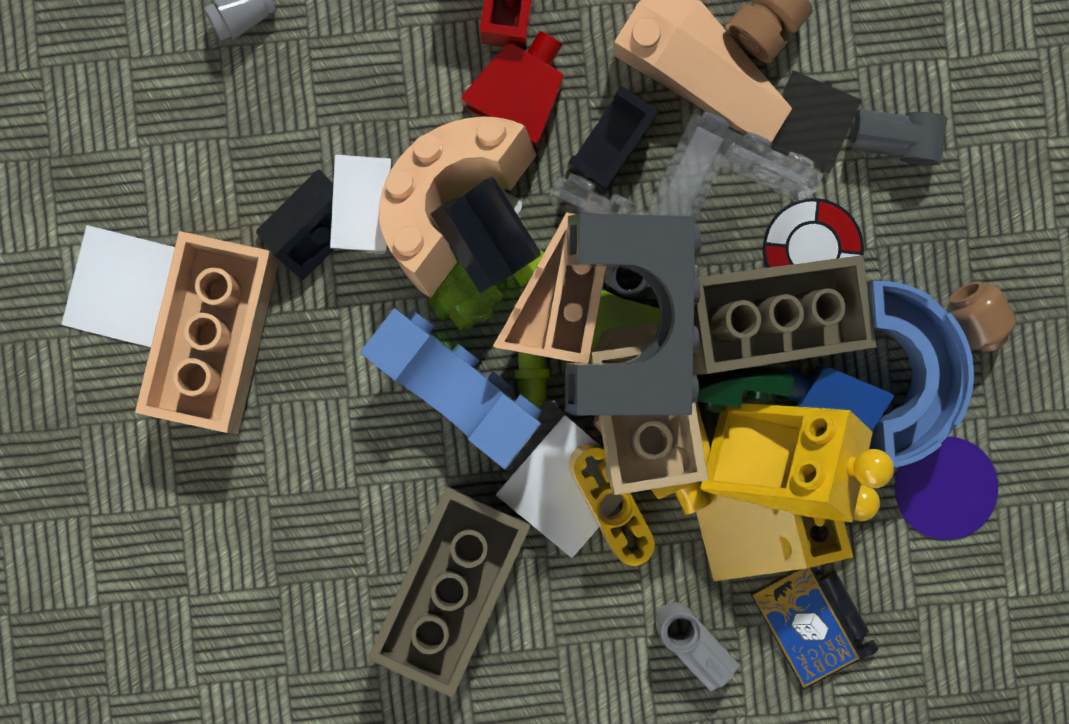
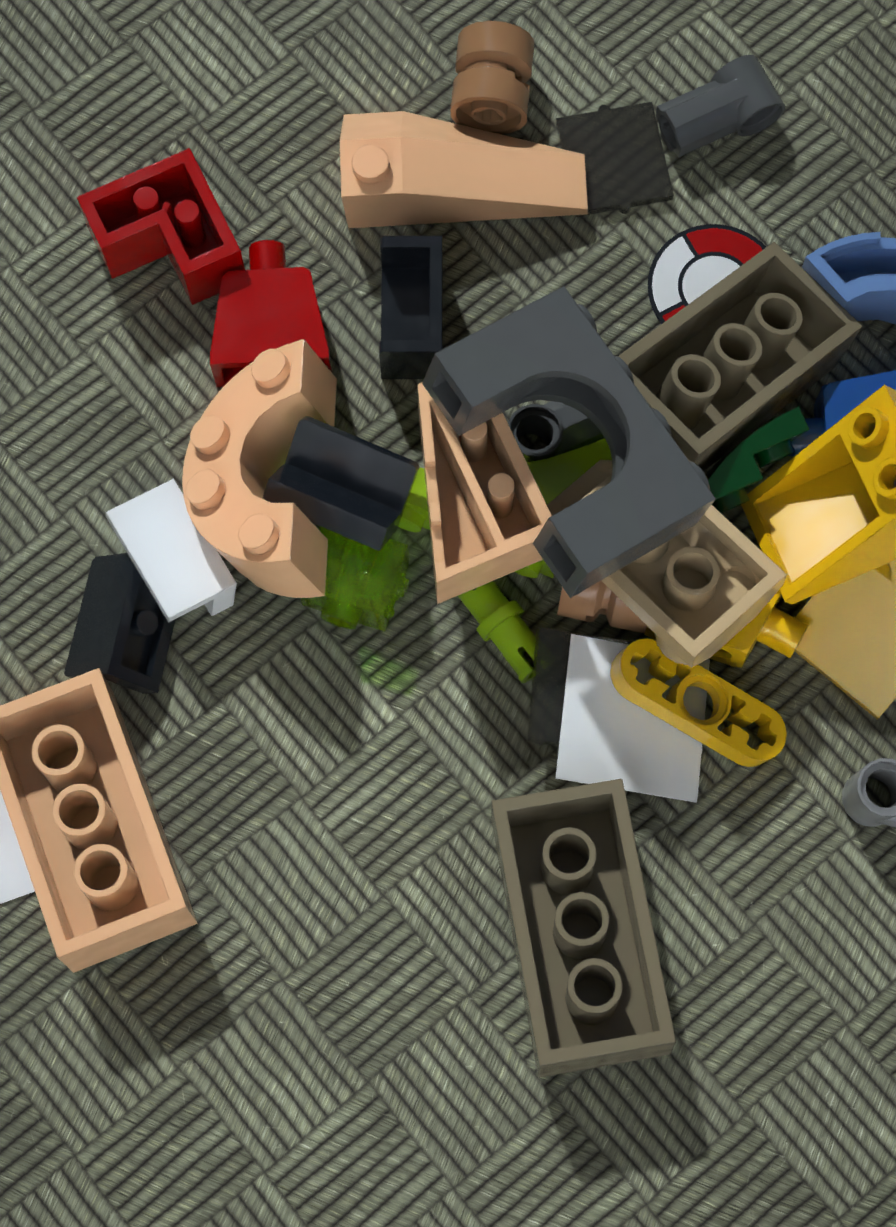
camera: 30 degrees left, 15 degrees down
(453, 385) = (417, 689): medium blue brick -> none
(692, 171) = (521, 252): clear bracket -> none

